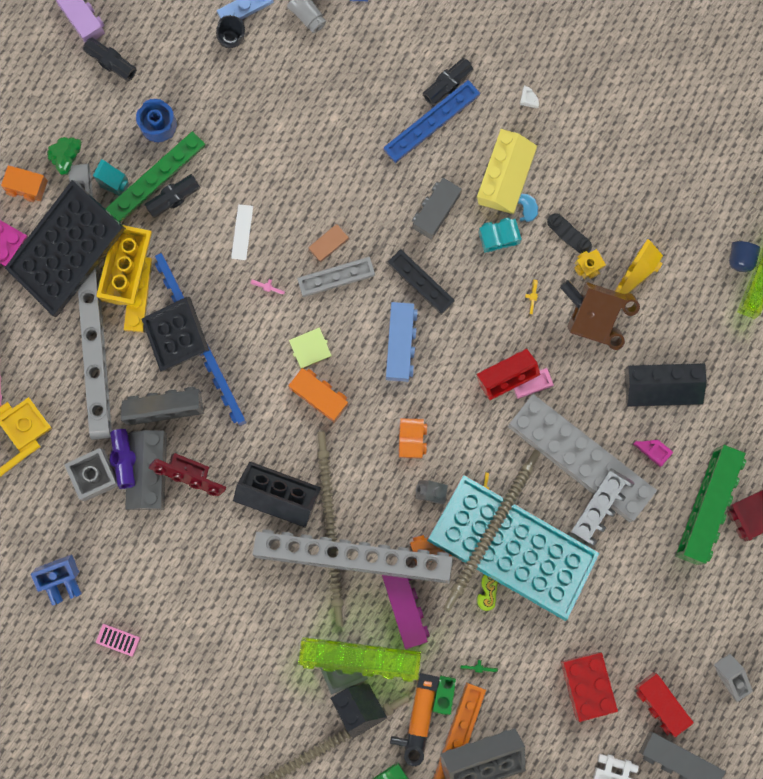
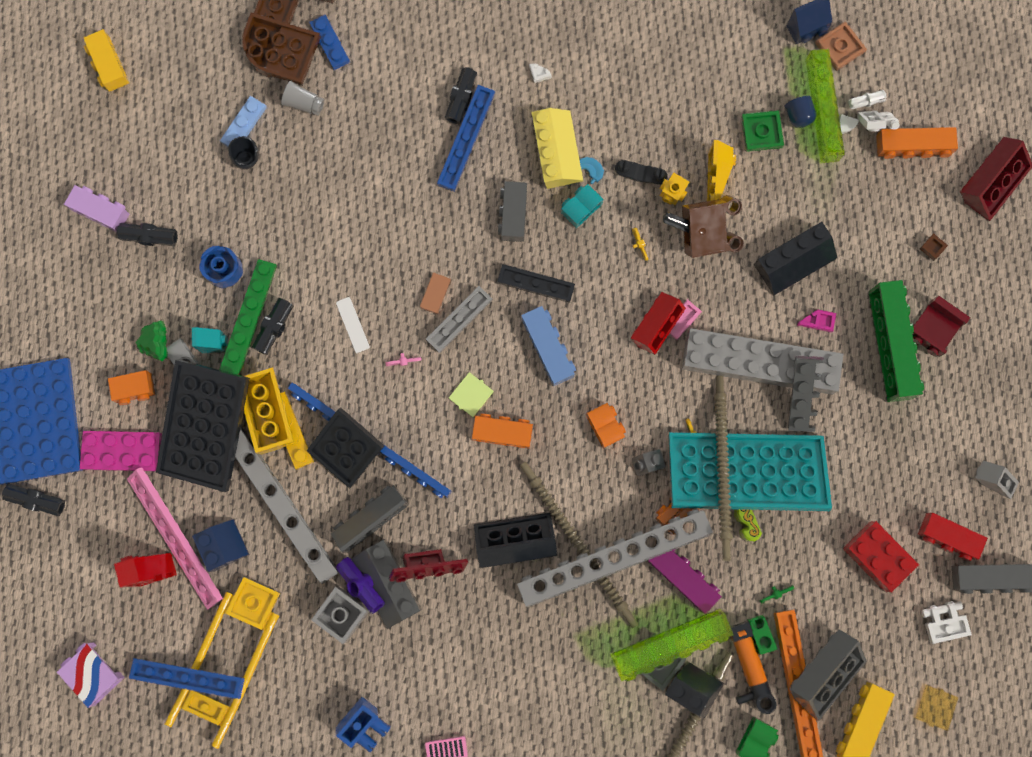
camera: 25 degrees left, 0 degrees up
(24, 359) = (220, 545): none -> dark blue slope
(699, 255) = (762, 131): none -> green plate

